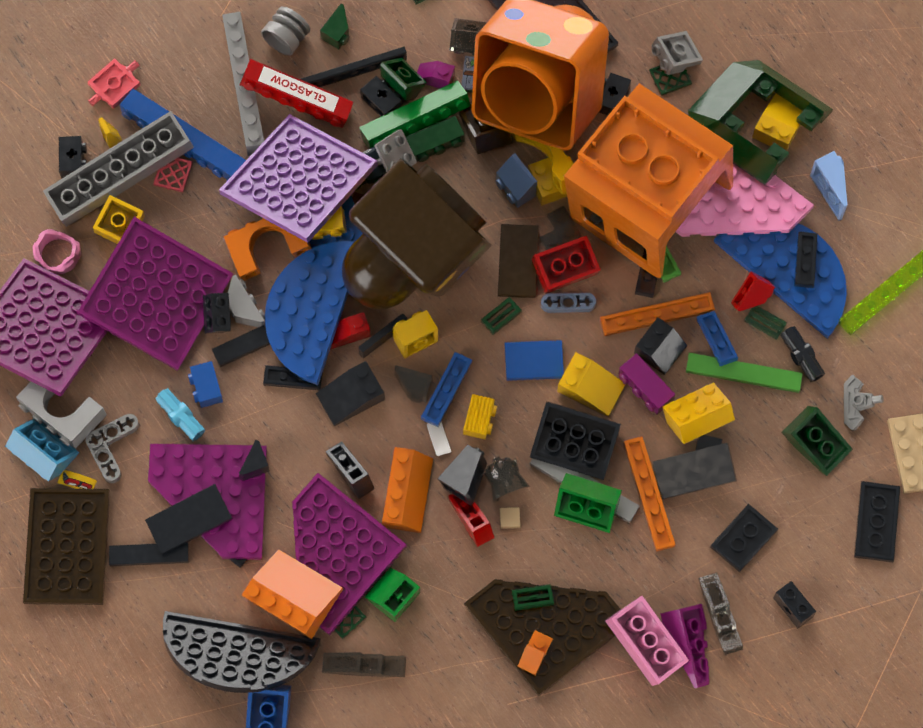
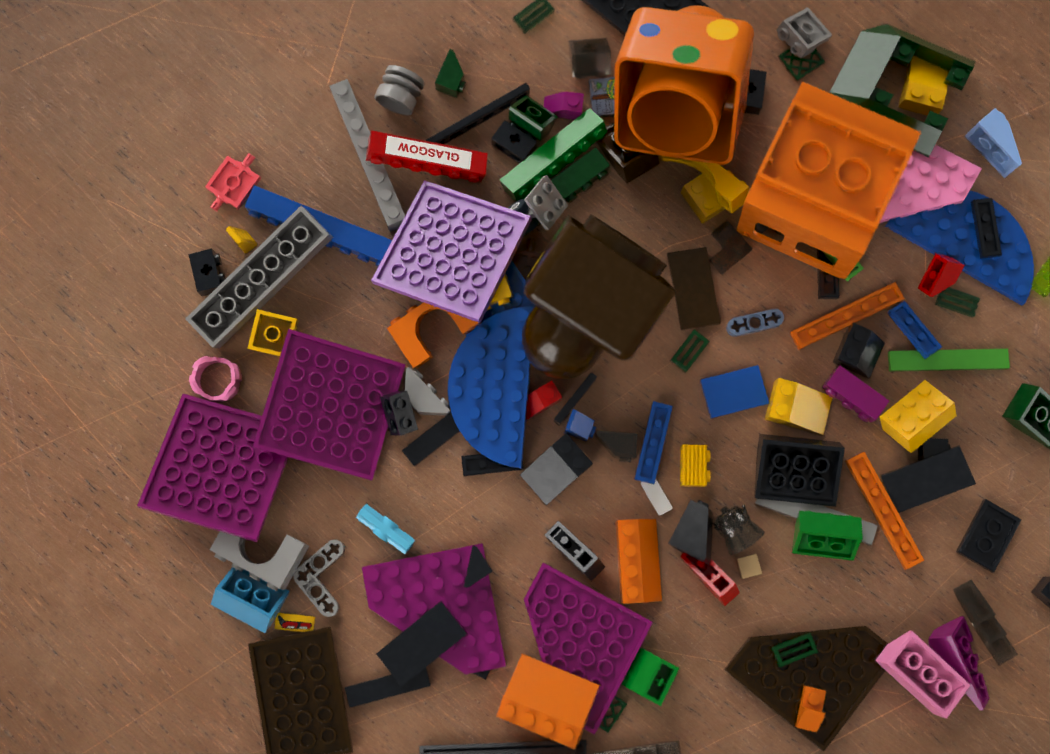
camera: 15 degrees left, 10 degrees up
(185, 177) = (331, 267): coral window -> none
(206, 384) = (404, 490): blue brick -> none
(380, 358) = (580, 426): none -> blue slope
(415, 333) = (610, 391): yellow brick -> none
(516, 181) = (674, 204): medium blue slope -> none
(566, 264) = (746, 284): red brick -> none
(802, 354) = (1004, 328): black piece -> none

